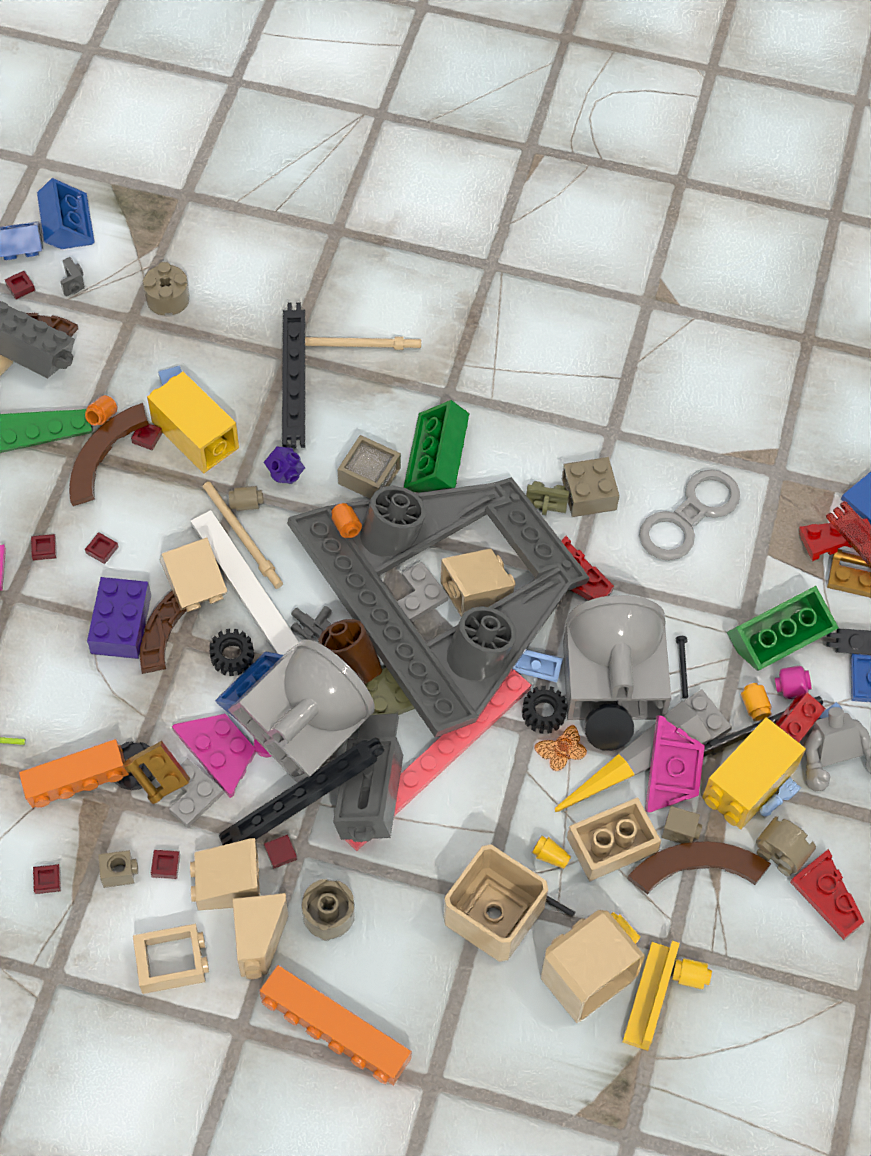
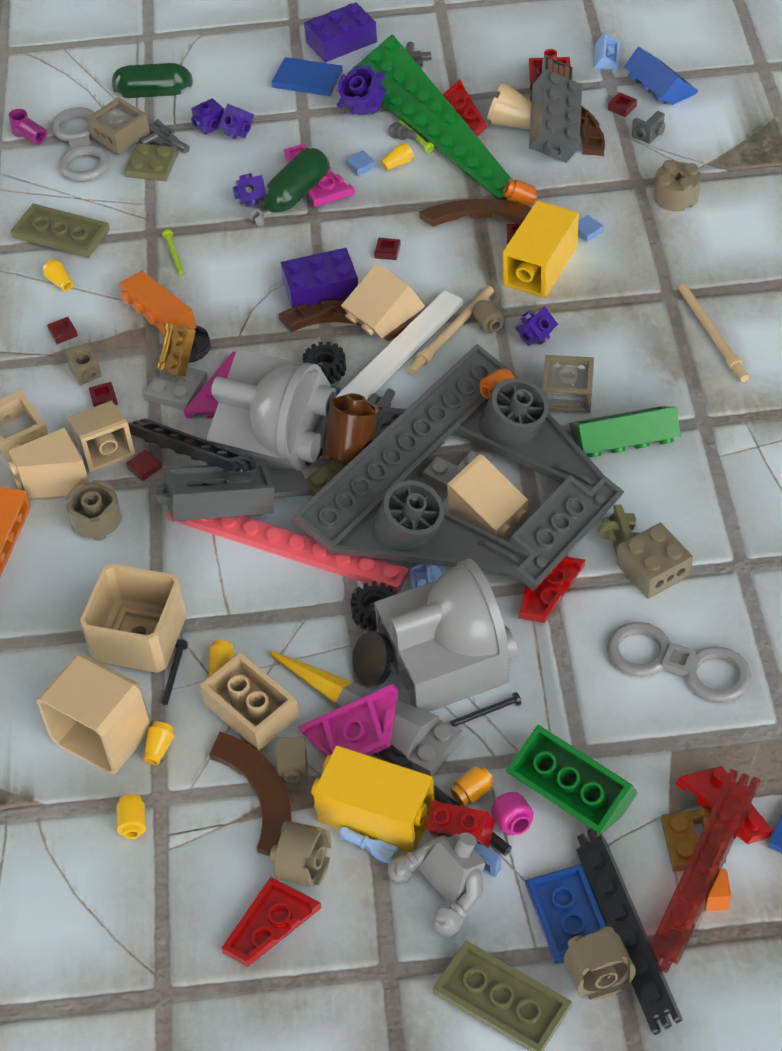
camera: 75 degrees right, 10 degrees down
(43, 547) = (369, 215): dark red tile -> none
(64, 215) = (712, 100): blue slope -> none
(294, 376) = (640, 299): black hinge -> none
(562, 749) = (339, 637): clear orange animal -> none
(650, 995) = (95, 791): yellow fence -> none

